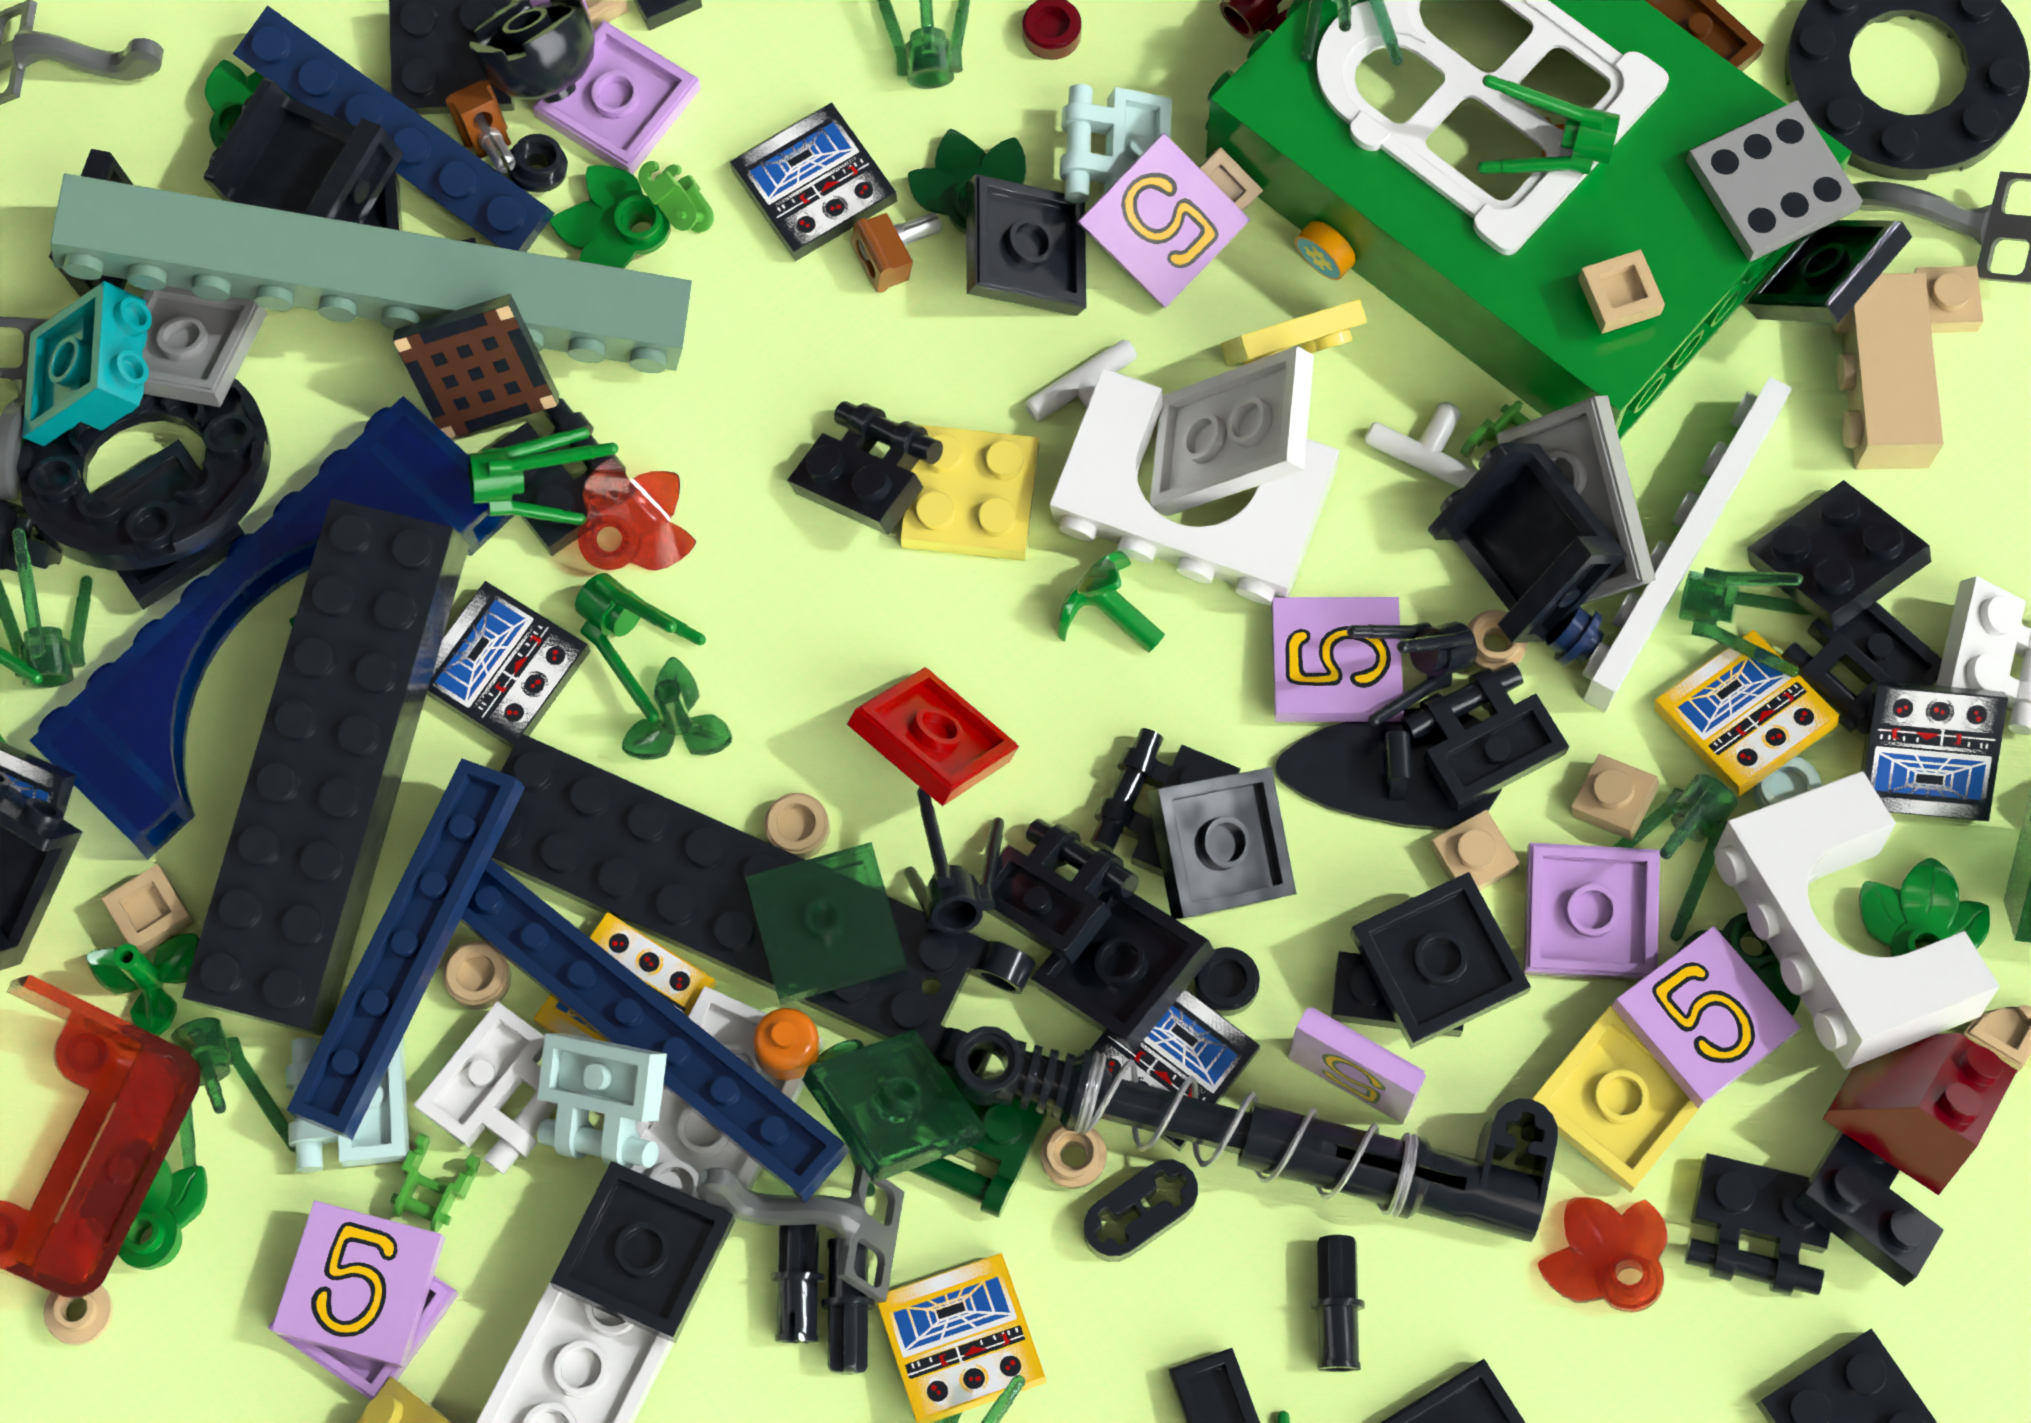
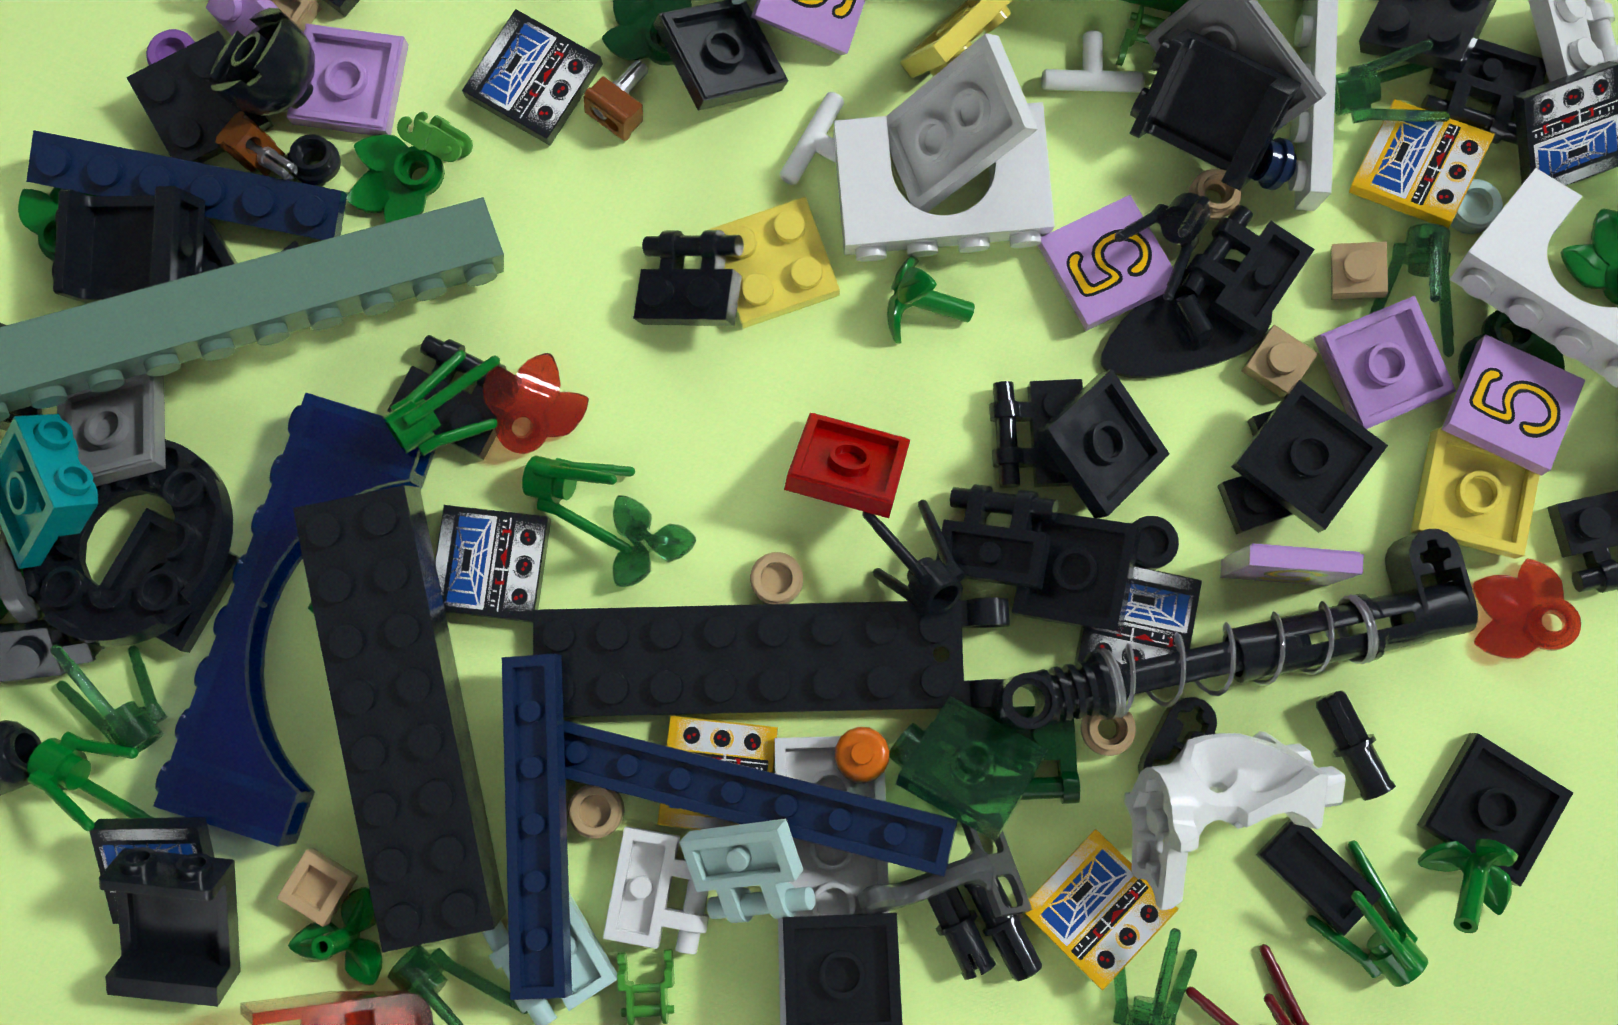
camera: 25 degrees left, 10 degrees up
(476, 367) = (350, 342): tile -> none
(826, 923) = (843, 647): clear green plate -> none
(1167, 1253) = (1224, 780): none -> white hips

